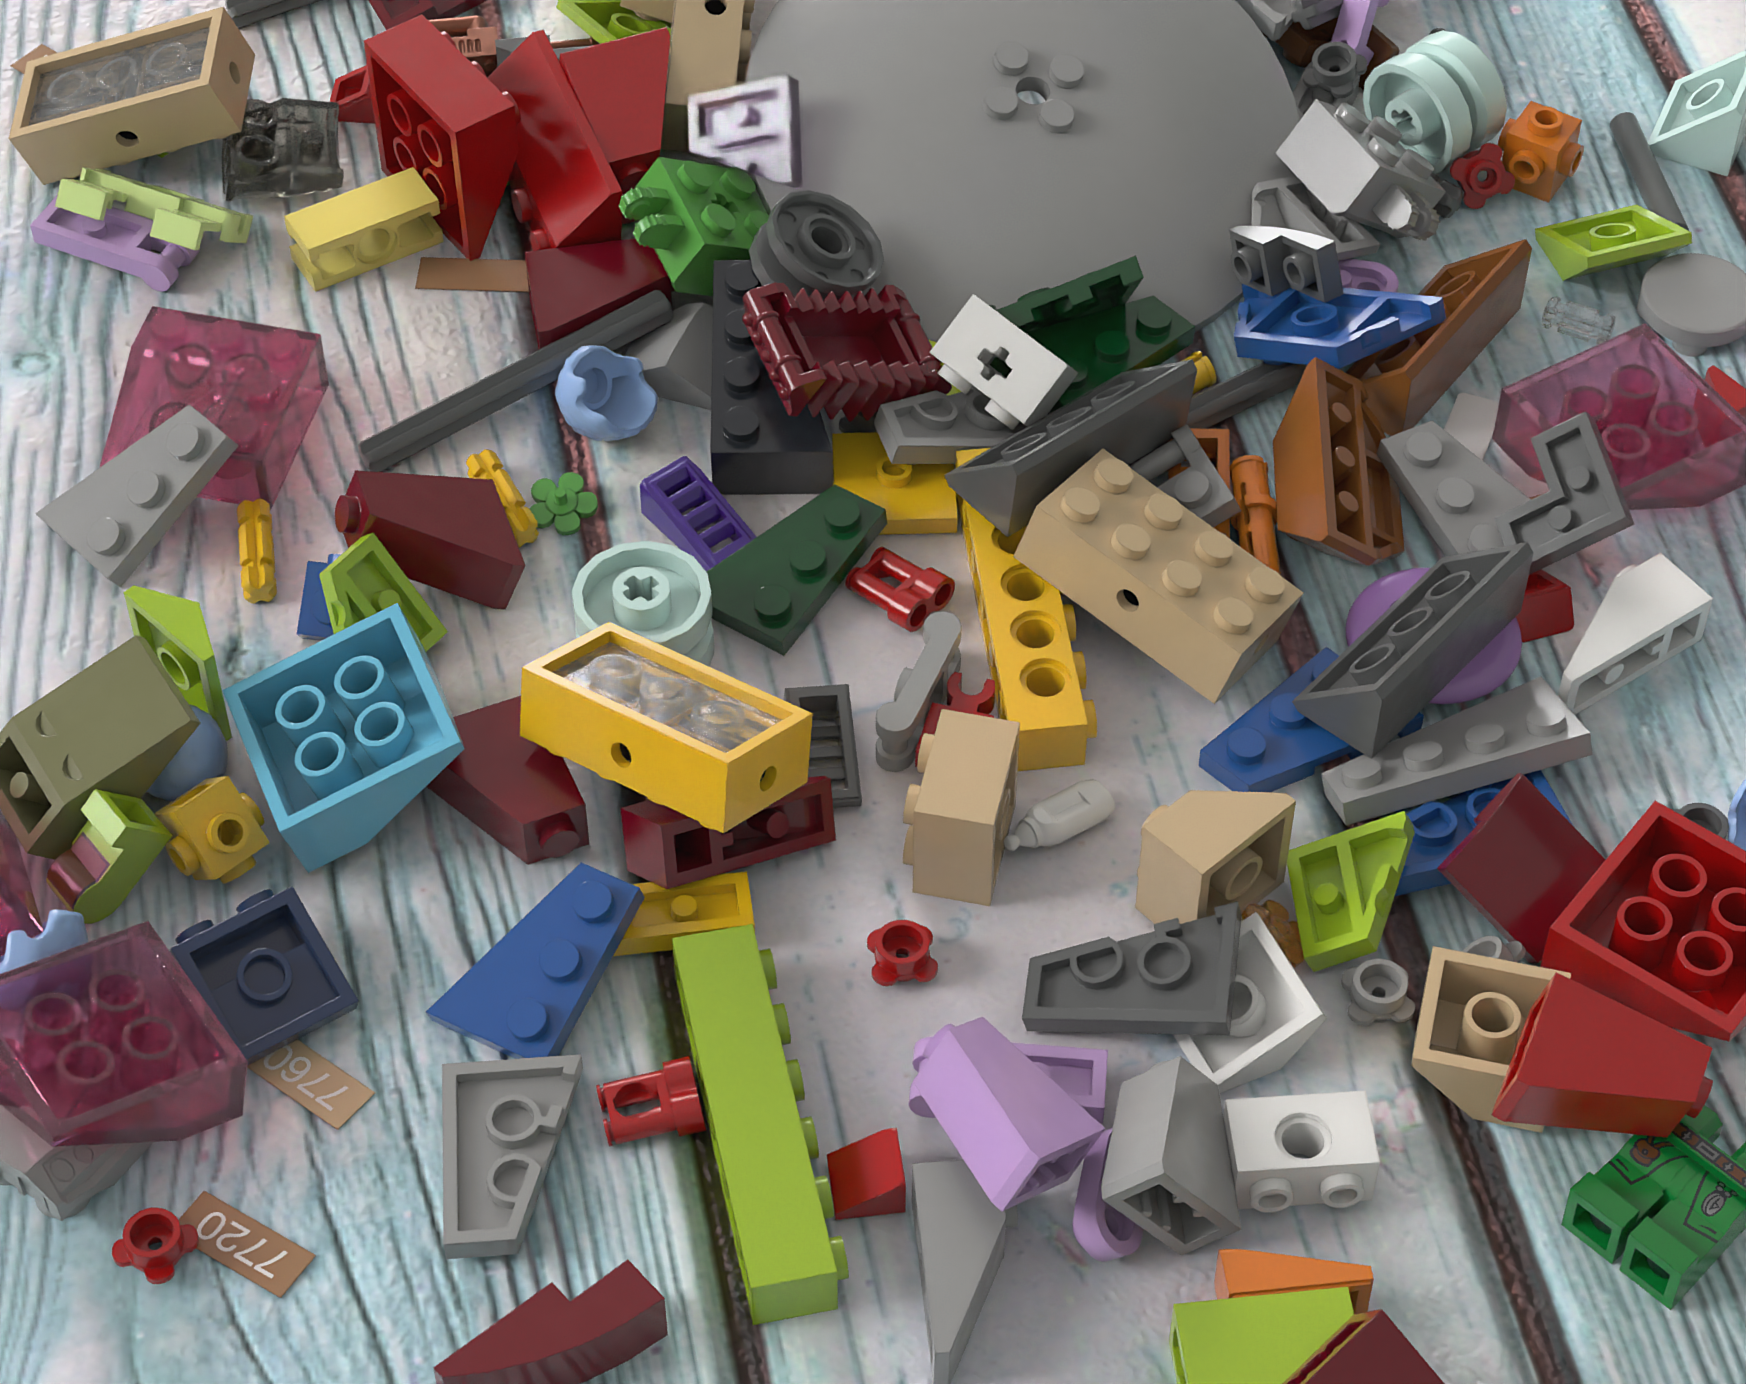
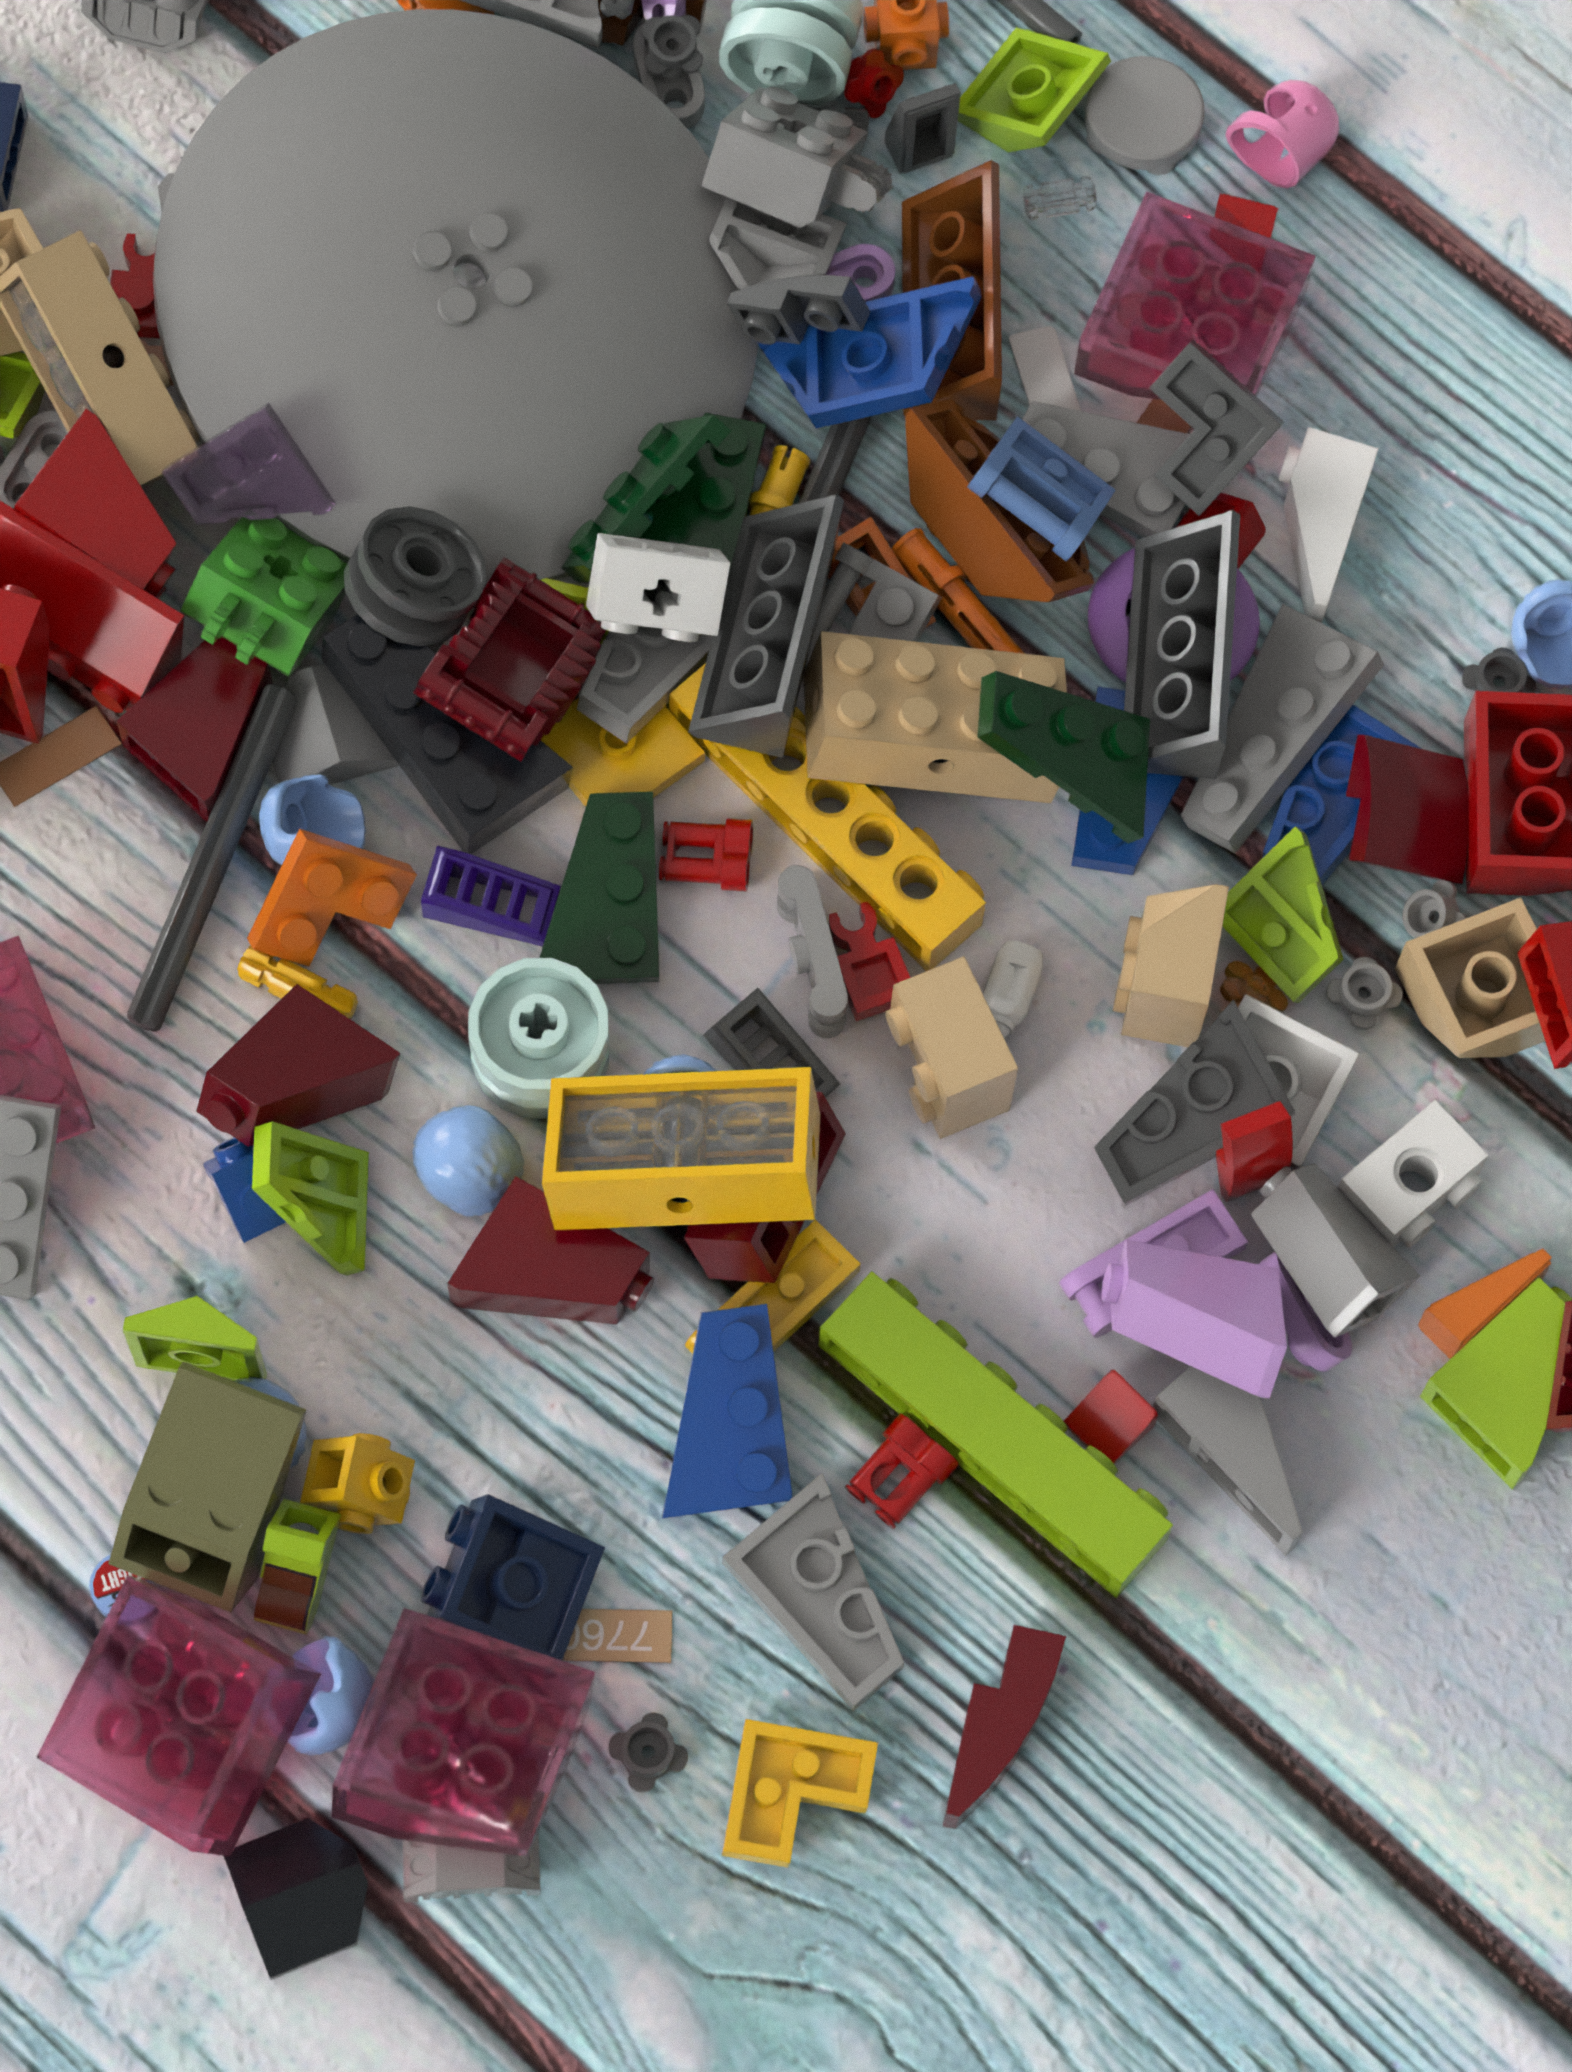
camera: 40 degrees left, 20 degrees up
(152, 1227) = (611, 1846): red plate -> none
(246, 1244) = (673, 1809): medium nougat sticker -> none
(249, 1159) = (653, 1733): none -> dark grey plate
(256, 550) = (130, 1182): yellow axle -> none
(339, 1257) = (777, 1772): none -> yellow plate
(345, 734) = (406, 1321): medium azure slope -> none
(497, 660) = (466, 1159): none -> light blue hair
(563, 503) = (351, 954): bright green plant -> none
(576, 423) = (317, 882): none -> orange plate
(902, 938) = (989, 1188): red plate -> none
(1159, 1021) = (1254, 1150): none -> red slope
(1256, 643) = (1073, 742): none -> dark green wing
(1395, 460) = (1052, 478): none -> medium blue plate
(1488, 234) = (924, 129): none -> dark grey slope

